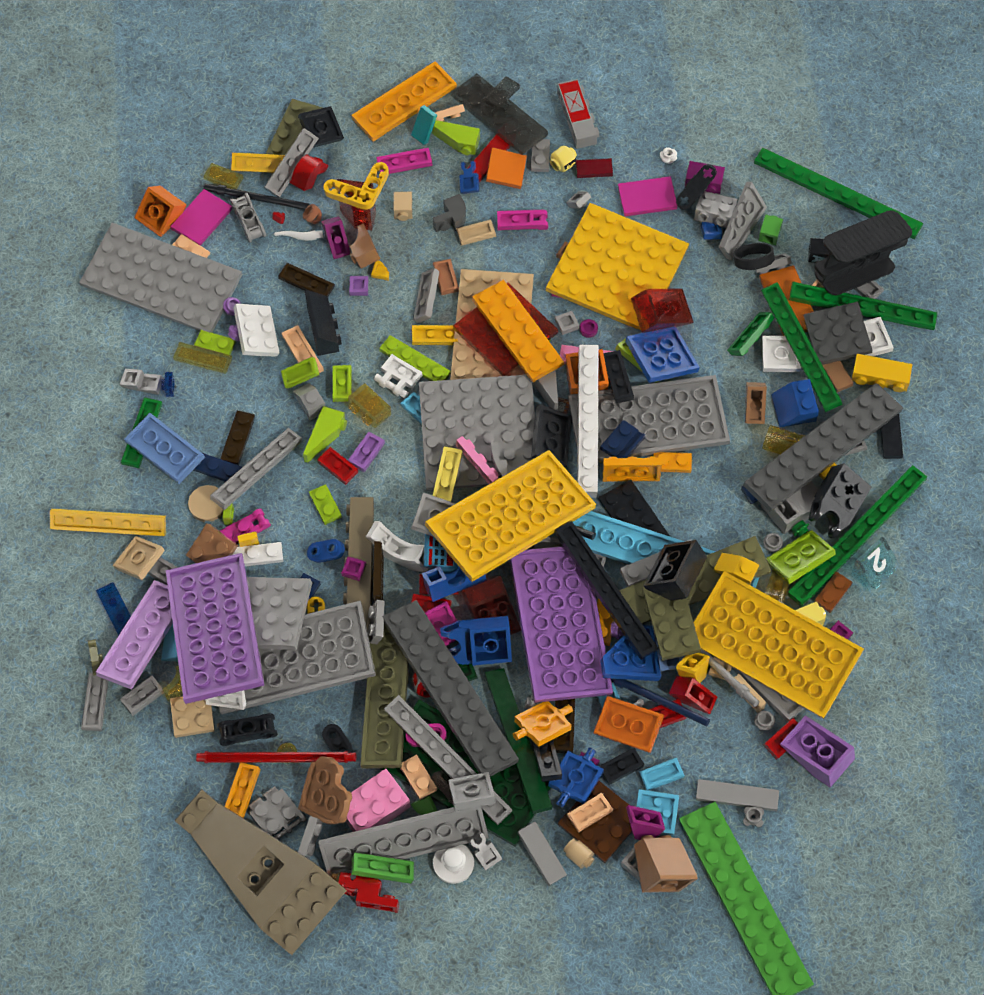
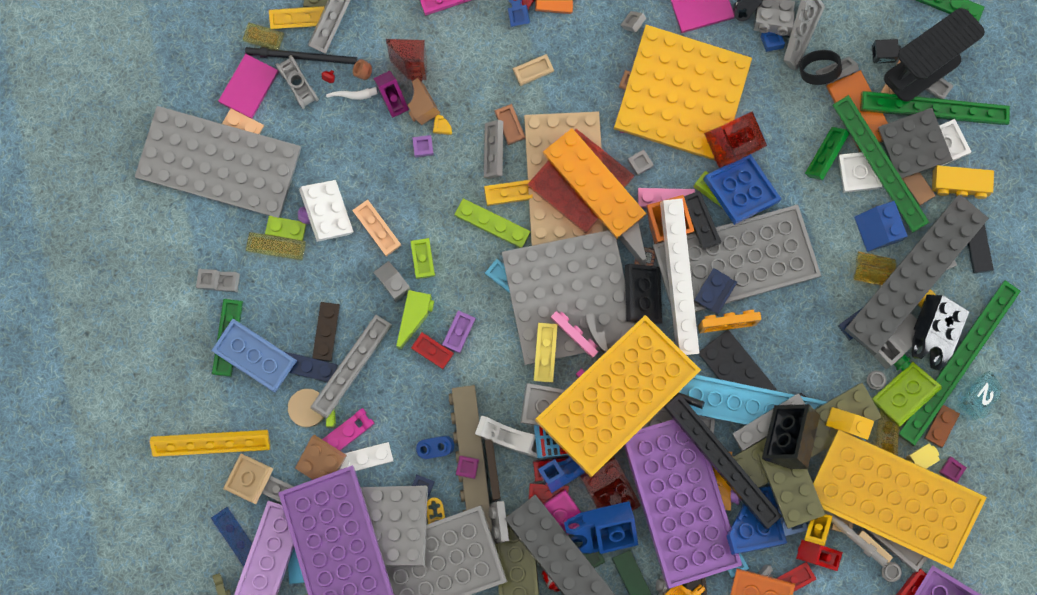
camera: 10 degrees left, 15 degrees up
(159, 209) = (203, 84): orange slope -> none
(168, 384) = (245, 282): clear blue plate -> none
(228, 305) = (295, 184): medium lavender plate -> none
(248, 539) = (355, 445): yellow tile -> none
(300, 372) = (378, 253): lime tile -> none
(305, 280) = (368, 146): dark brown tile -> none
(307, 171) = (350, 23): red brick -> none
(322, 323) = (393, 195): black slope -> none
(325, 504) = (426, 394): lime plate -> none
(364, 192) = (418, 51): yellow beam -> none
(369, 406) = (454, 281): clear yellow brick -> none
(400, 371) = (481, 238): white plate -> none
(402, 205) = (454, 50): tan brick -> none
(454, 215) = (510, 53): dark grey brick -> none
(522, 220) = (578, 51): dark pink plate -> none
(588, 328) = (662, 165): magenta tile -> none
(623, 683) = (794, 569): dark blue bar -> none
(675, 462) = (767, 303): light orange plate -> none
(755, 402) = (841, 226): medium nougat arch -> none
(770, 229) = (833, 32): bright green brick -> none

